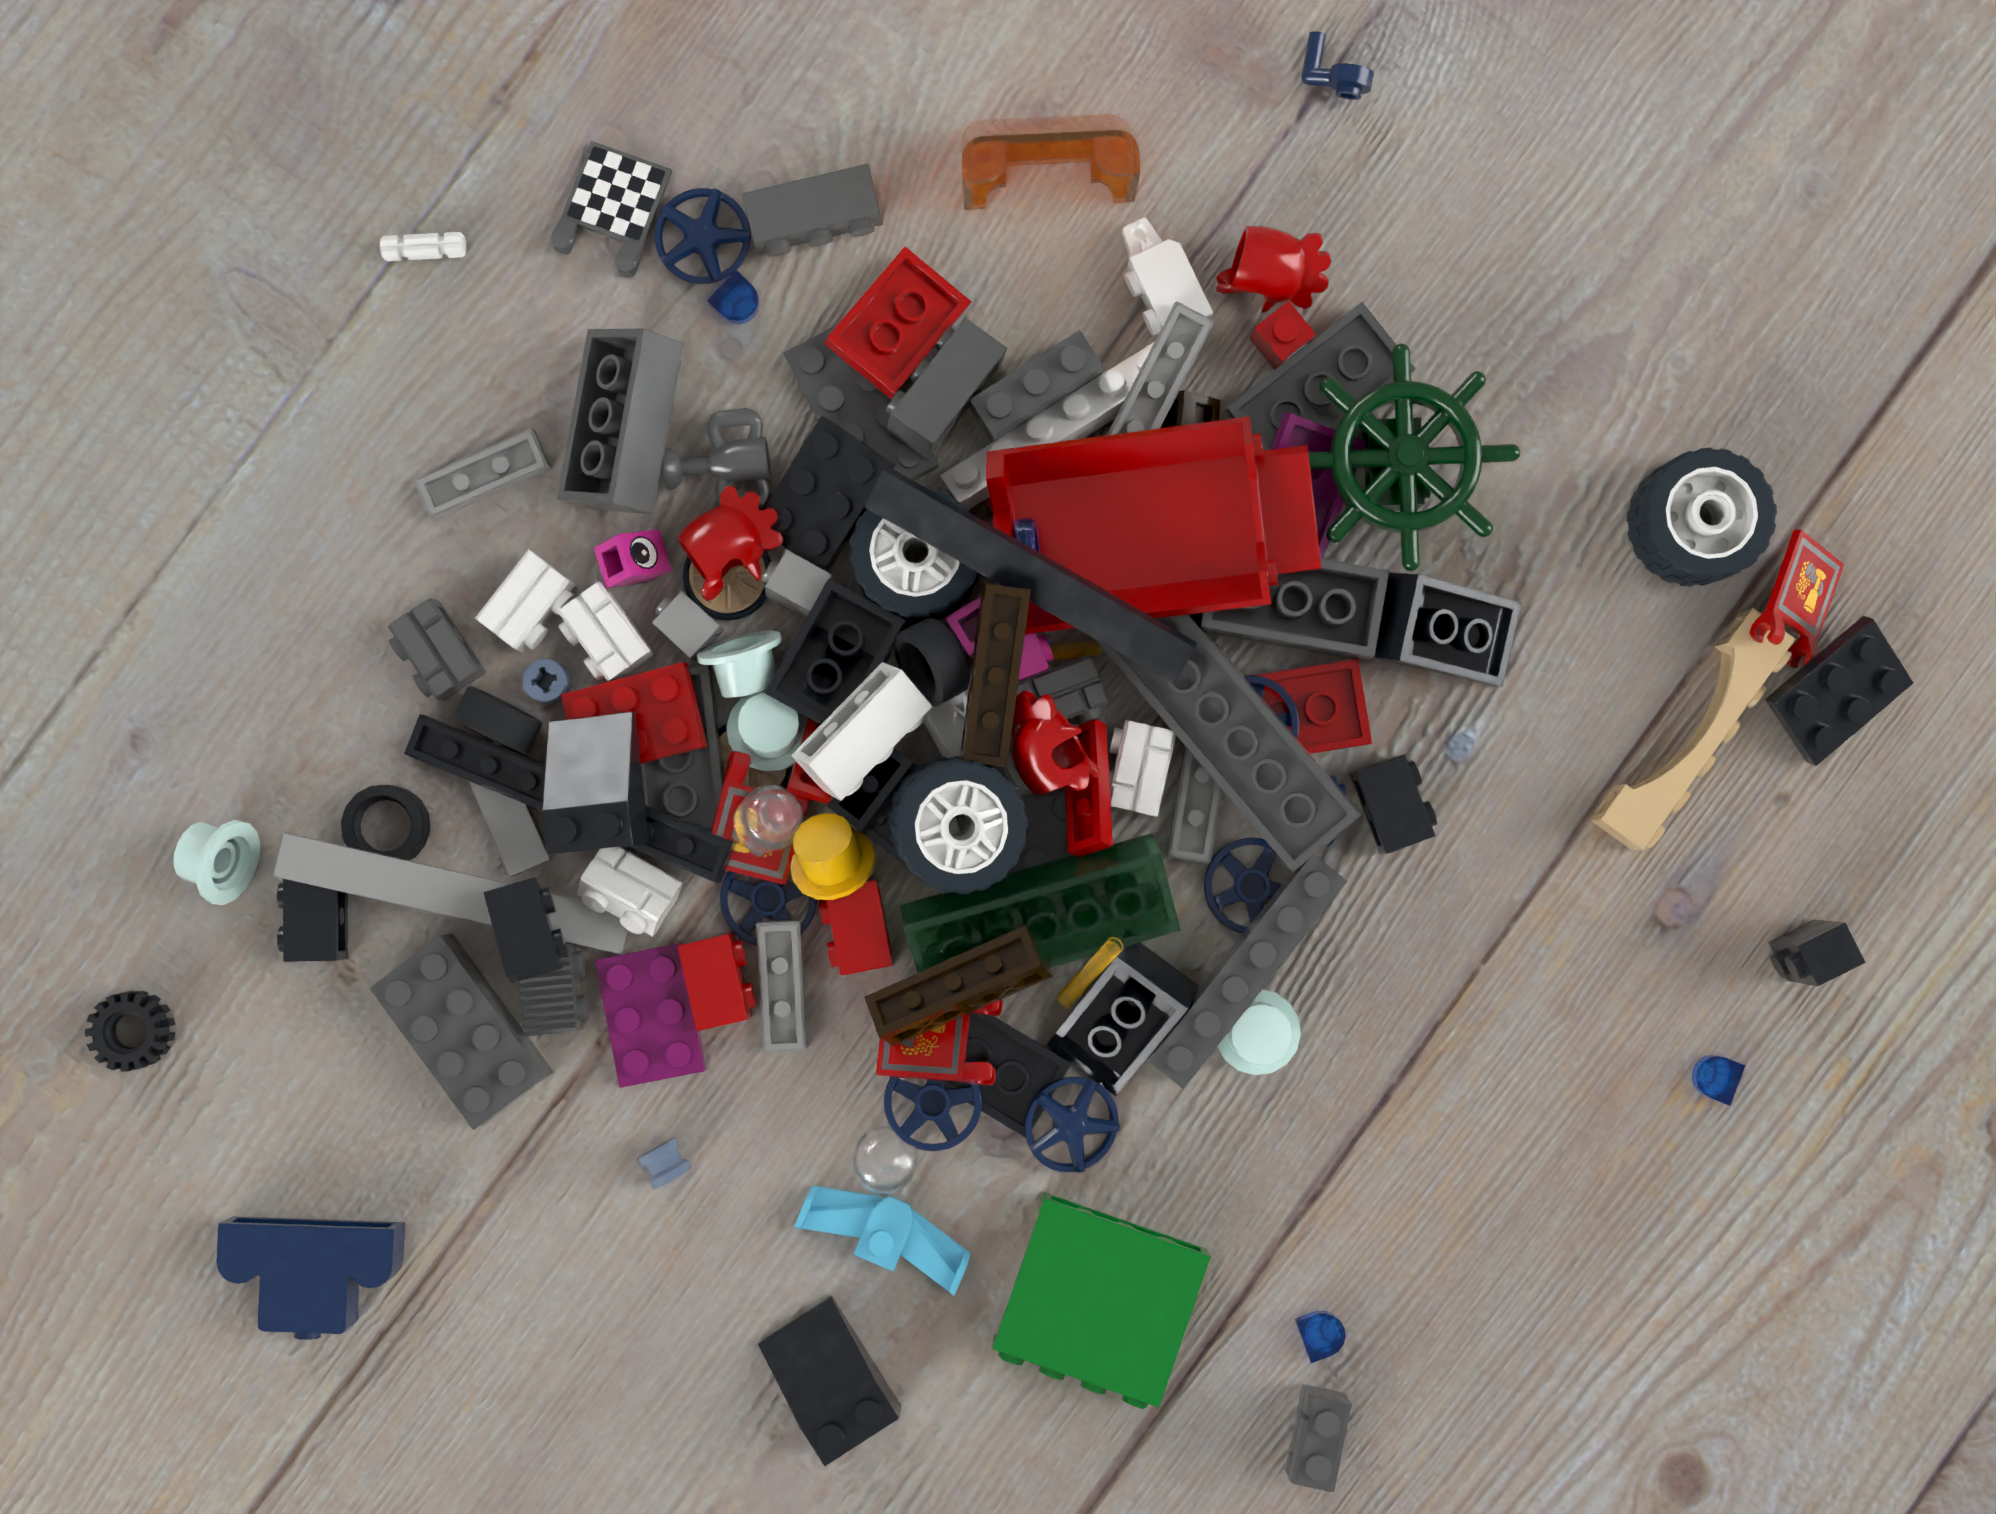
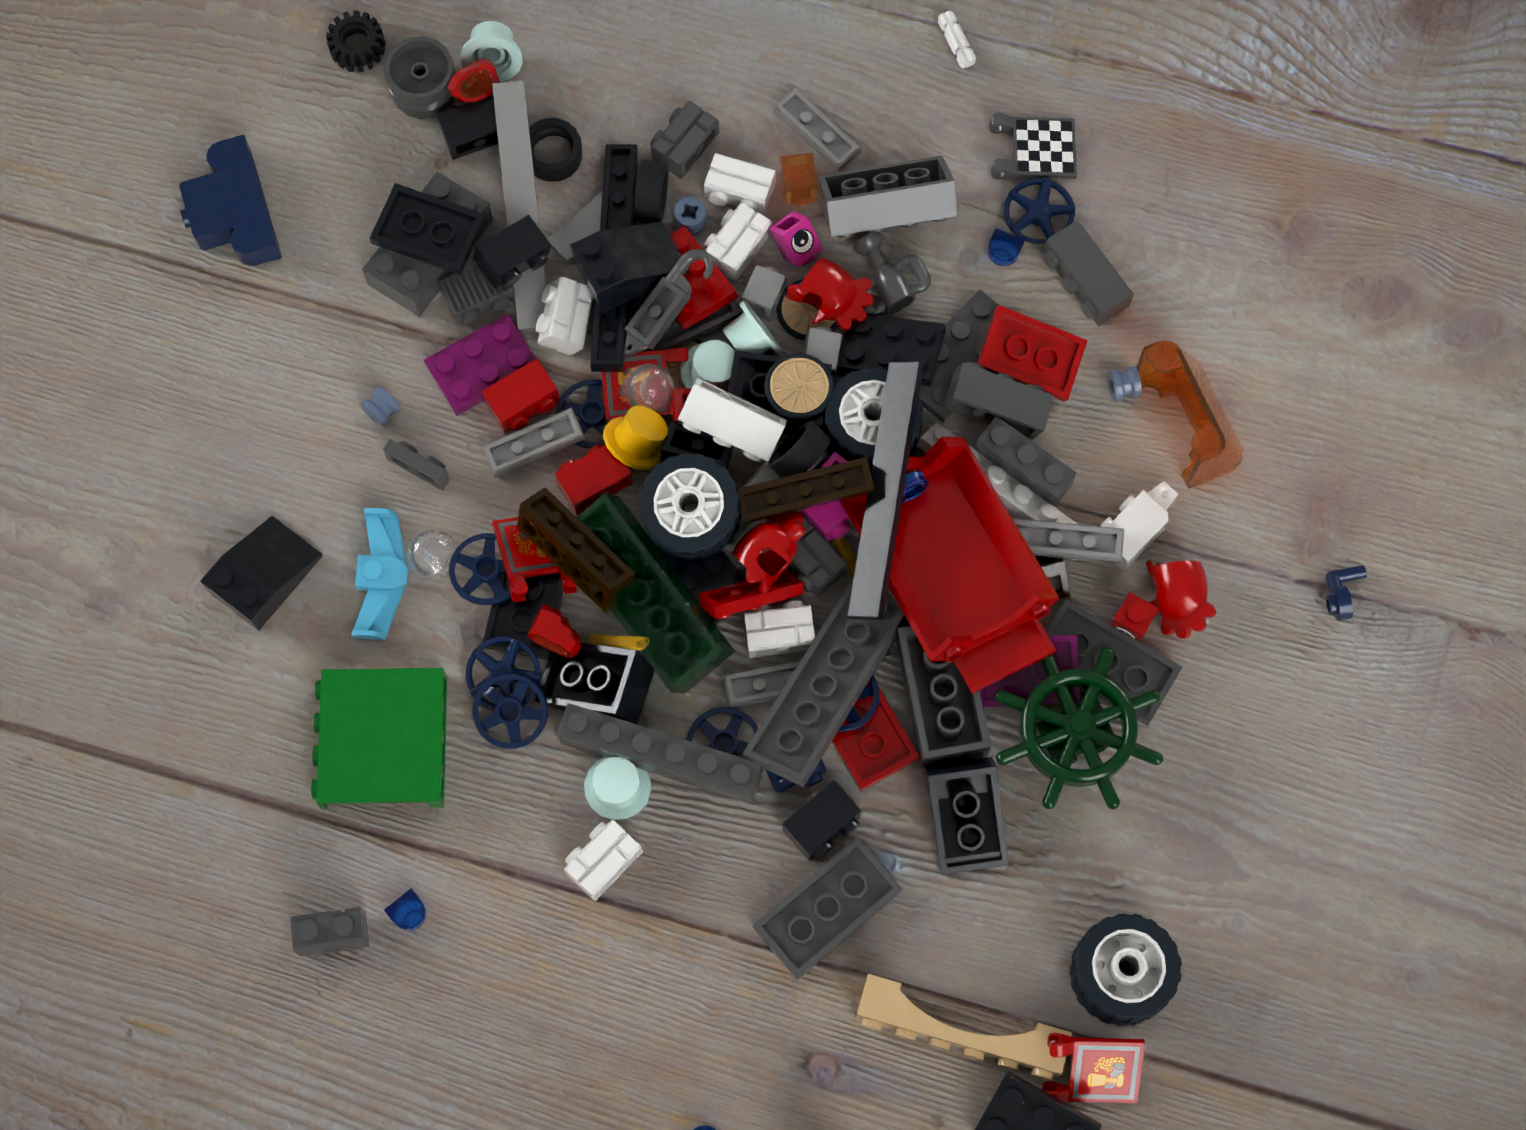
camera: 70 degrees right, 15 degrees down
(194, 966) = (420, 76): none -> dark grey wheel
(257, 897) = (474, 81): none -> rock
(453, 1029) = (427, 229): none -> black plate
(548, 523) = (799, 179): none -> clear orange brick
(670, 760) = (663, 304): none -> dark grey plate
(743, 1153) = (406, 457): none -> dark grey plate
(845, 630) = (799, 386): none -> tan wheel
(976, 223) = (1124, 383): none -> sand blue wheel
(1048, 1046) = (554, 632): none -> red rock
(1120, 1130) = (510, 710): none -> dark blue wheel
(1346, 1082) = (602, 859): none -> white brick
(1498, 836) = (827, 908): none -> dark grey plate

